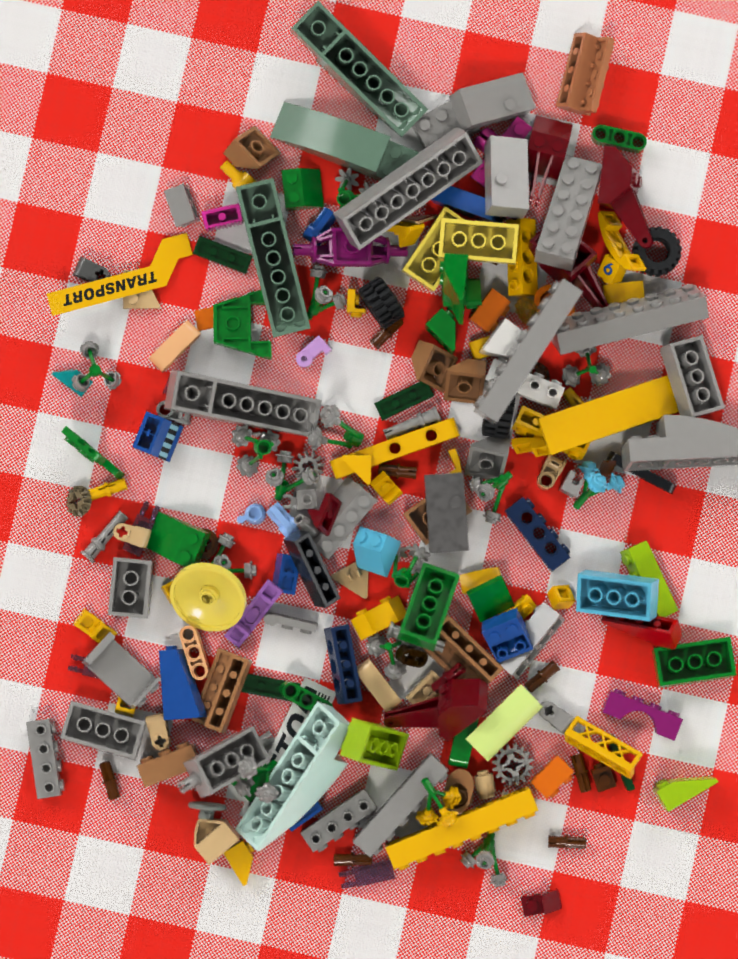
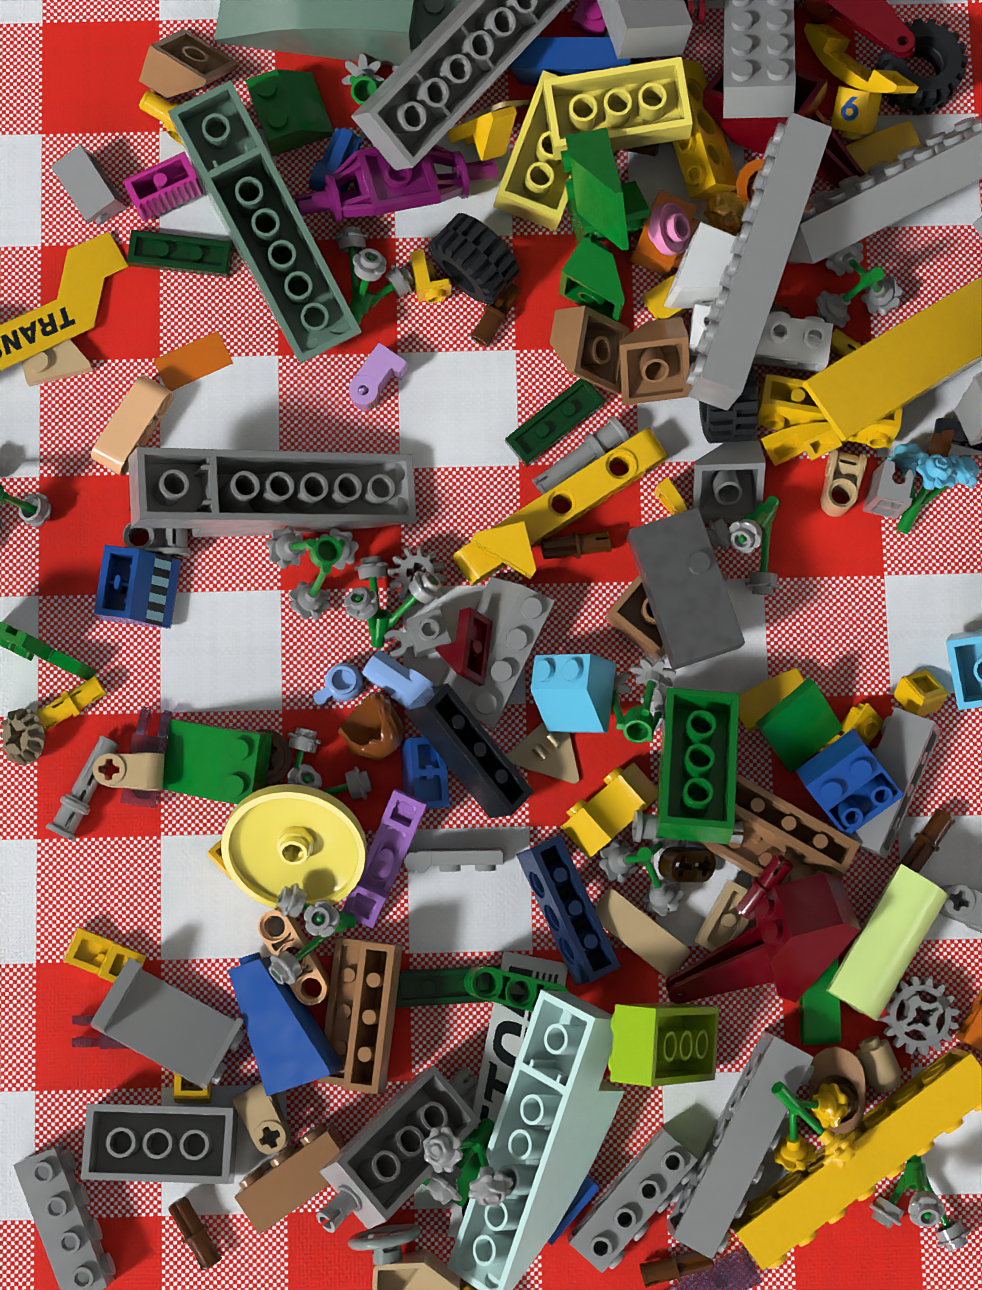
camera: 15 degrees left, 5 degrees down
(130, 587) = (150, 867): light grey brick -> none
(213, 638) = (321, 922): none -> light grey plant
(233, 325) = (227, 364): green wing -> none
(264, 543) = (373, 728): none -> dark orange hair
(306, 524) = (439, 673): light grey cone -> none
(329, 417) = (437, 472): light grey plant -> none
(386, 488) = (563, 578): yellow bracket -> none
(490, 314) = (669, 229): none -> bright pink plate
(515, 513) = (856, 612): dark blue brick -> none

